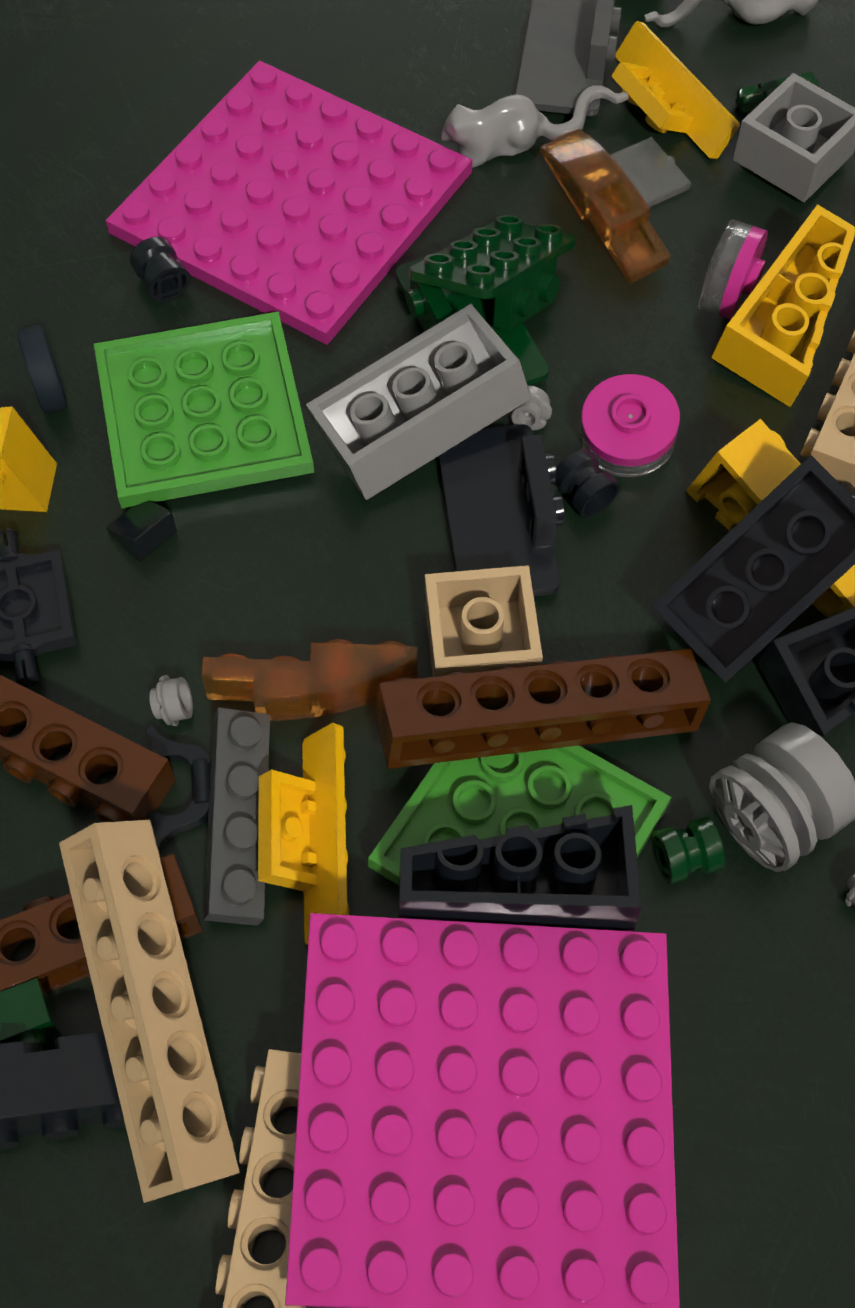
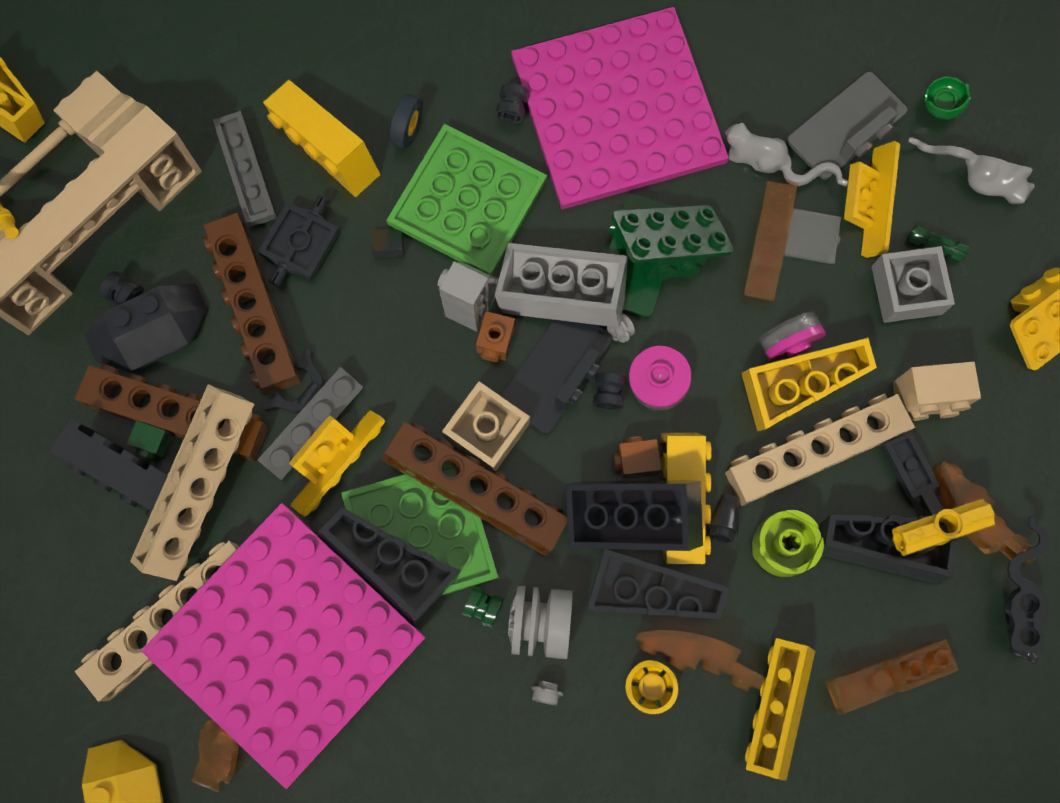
camera: 40 degrees right, 15 degrees up
(171, 700) = (327, 344): light grey plate -> none
(312, 489) = (467, 294): none -> light grey wedge
(332, 681) = (402, 393): clear orange slope -> none
(387, 525) = (495, 337): none -> dark orange brick
(694, 526) = (637, 458): none -> dark orange brick

